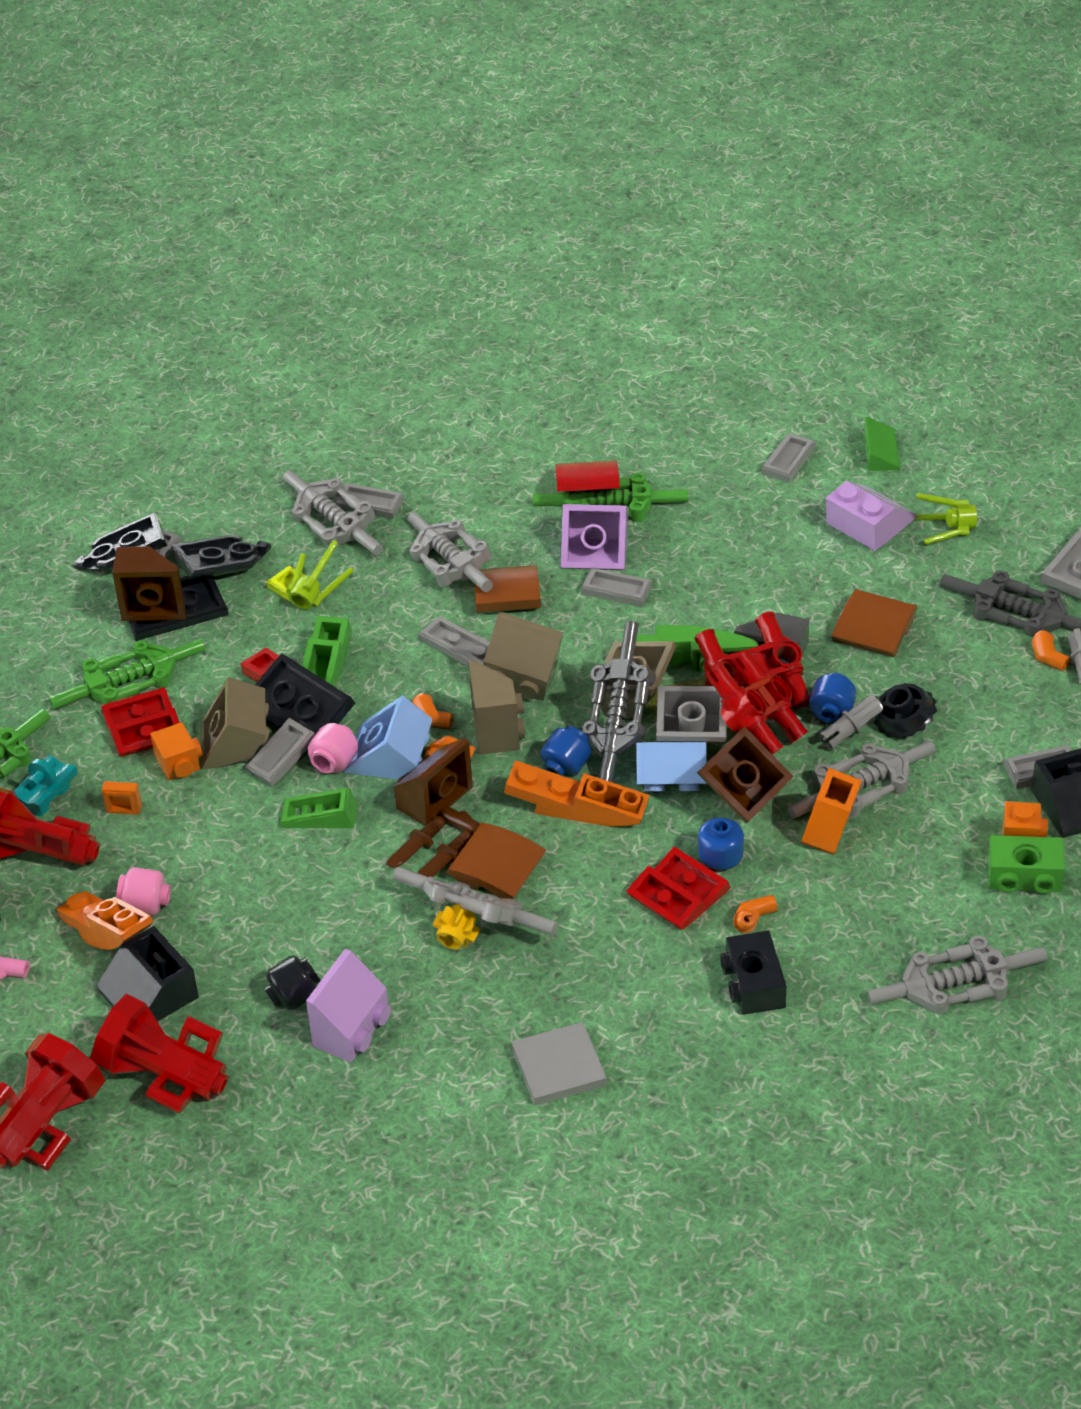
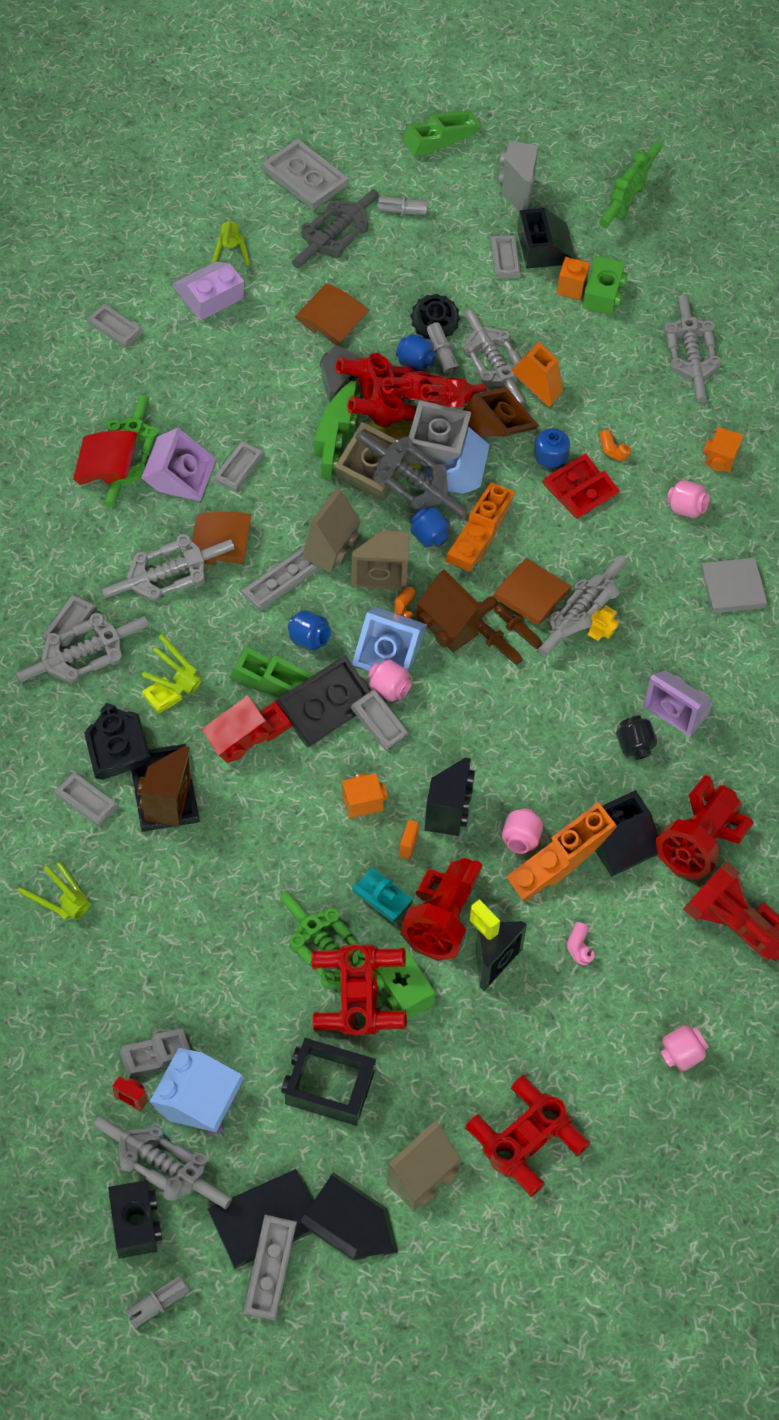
camera: 85 degrees left, 15 degrees up
(24, 561) = (73, 900): none -> lime plant
(103, 687) = (255, 851): bright green bar -> none
(136, 717) = (312, 822): red slope -> none
(141, 532) = (78, 814): black tile -> none
(169, 813) = (450, 799): none -> black slope
(234, 724) = (348, 746): dark tan slope -> none
(241, 635) = (237, 730): none -> brick
(340, 814) = (453, 682): bright green slope -> none
(391, 674) = (309, 630): none -> blue head
(440, 719) = (355, 614): orange arm -> none
(682, 993) = (688, 499): none -> bright pink head
(754, 973) = (676, 454): black brick -> none
(777, 1022) = (722, 450): none -> orange brick
(880, 446) = (122, 266): bright green slope -> none
(1045, 651) = (390, 225): orange arm -> none

